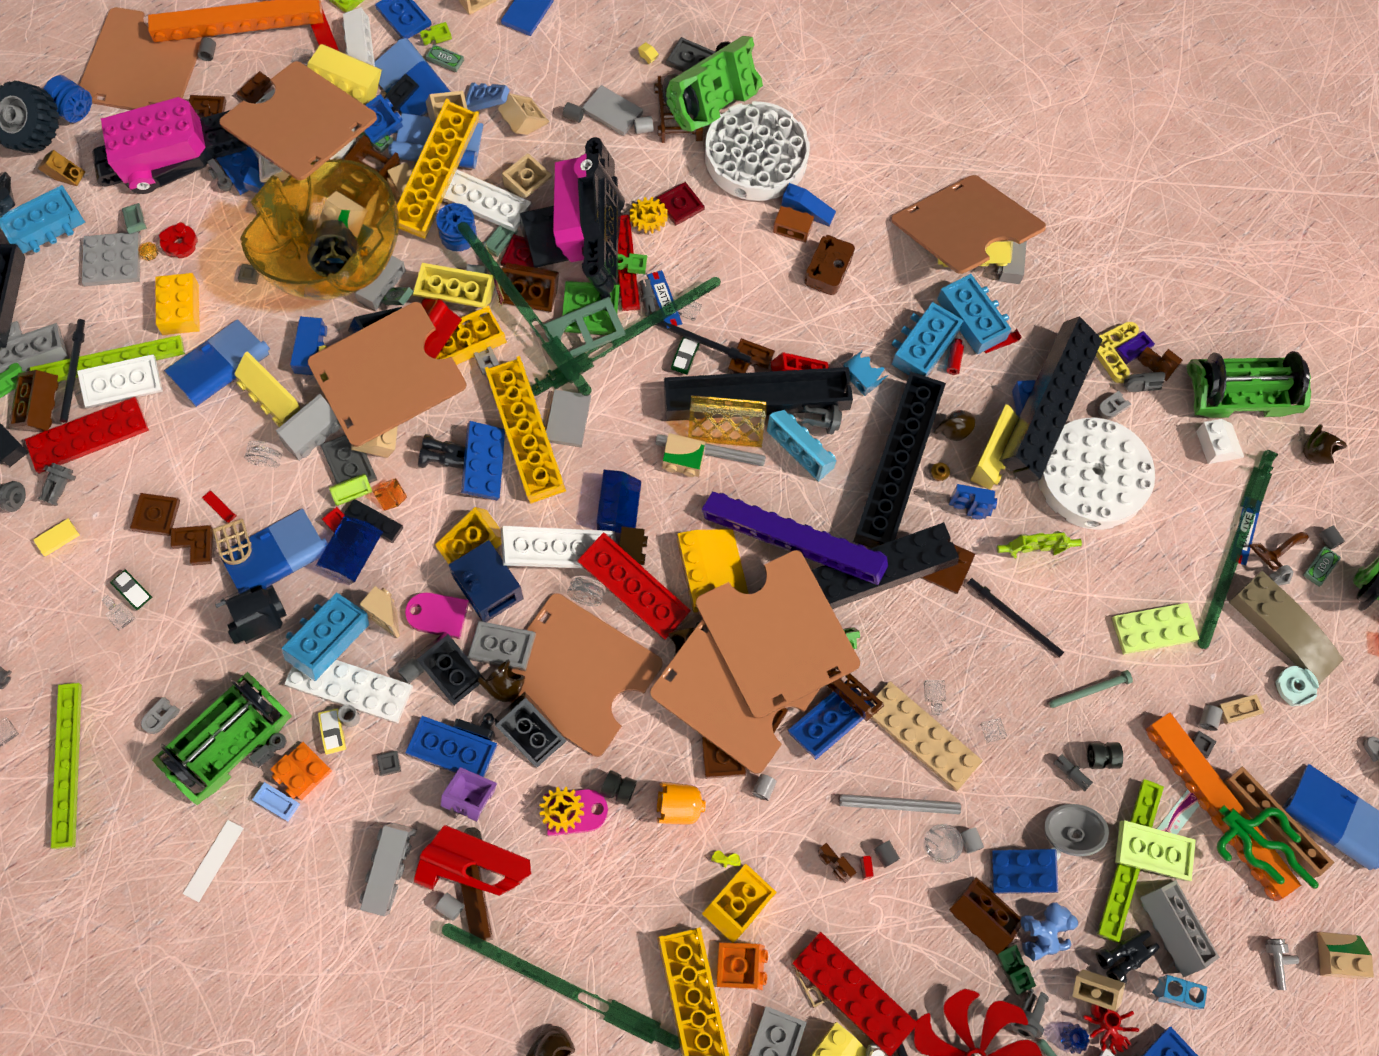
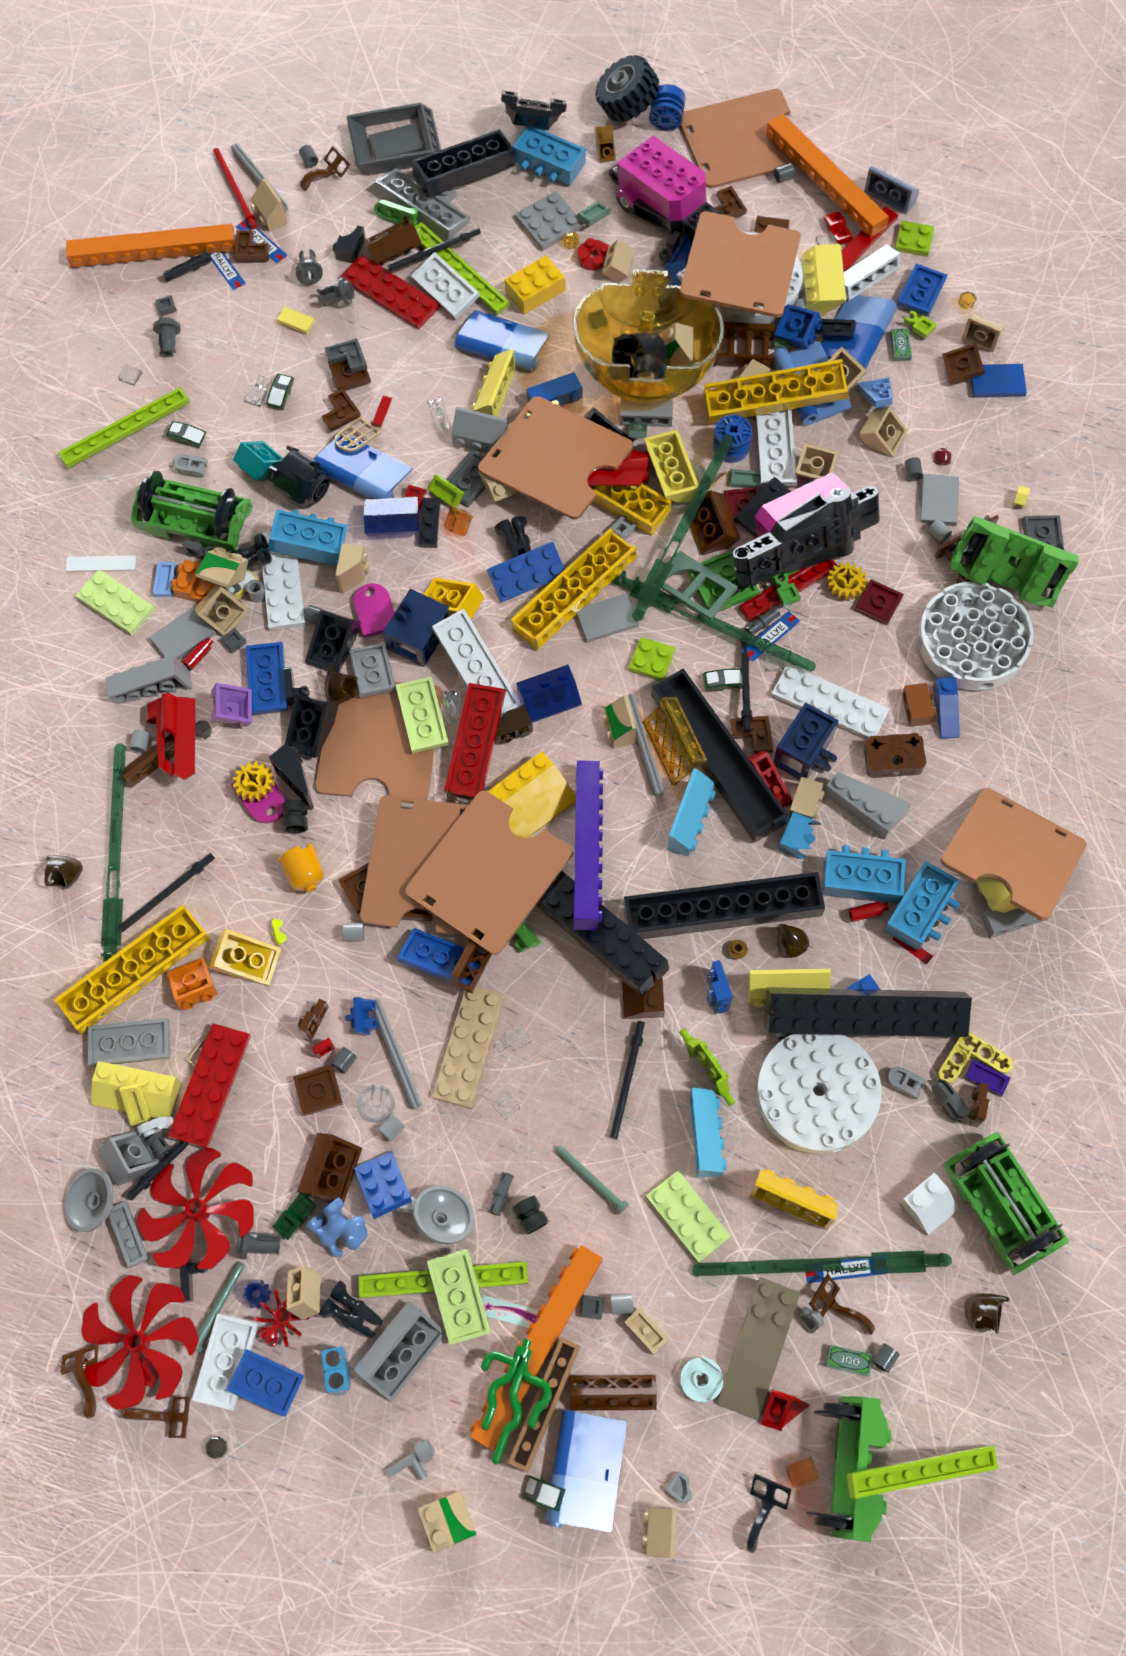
camera: 70 degrees right, 0 degrees up
(117, 704) = (184, 432): none -> slope
(134, 501) = (348, 351): none -> dark grey tile
(199, 646) = (256, 459): none -> teal slope
(204, 223) = (618, 261): none -> tan brick
(270, 865) = (115, 602): none -> yellowish green plate
(290, 40) = (837, 225): none -> red slope
(305, 713) = (259, 549): none -> black piece
(311, 733) = (222, 568): none -> tan slope
(350, 757) = (221, 609): none -> tan slope
(352, 811) = (182, 634): none -> light grey tile
(384, 805) = (197, 653): none -> red cylinder
(497, 23) = (963, 363): none -> reddish brown plate
(572, 87) = (942, 456): none -> dark red piece
(573, 767) = (289, 768): none -> black slope
(577, 621) = (422, 715): none -> yellowish green plate
(619, 908) = (196, 868): none -> black bar
(631, 402) = (652, 659): none -> lime plate
(752, 287) = (852, 710): none -> white plate
(789, 316) = (807, 742): none -> dark blue piece
(830, 418) = (728, 827): dark grey piece -> none
(833, 349) = (806, 798): none -> tan brick
(862, 307) = (868, 804): none -> light grey wedge
(862, 819) = (360, 1016): none -> blue hips
(905, 891) = (318, 1090): none -> reddish brown plate
(1094, 577) = (706, 1133): none -> medium azure slope
(1181, 534) = (795, 1199): none -> yellow slope
(1289, 758) = (613, 1397): none -> reddish brown fence
(1343, 637) = (781, 1409): none -> red slope
(1350, 859) = (544, 1493): none -> slope

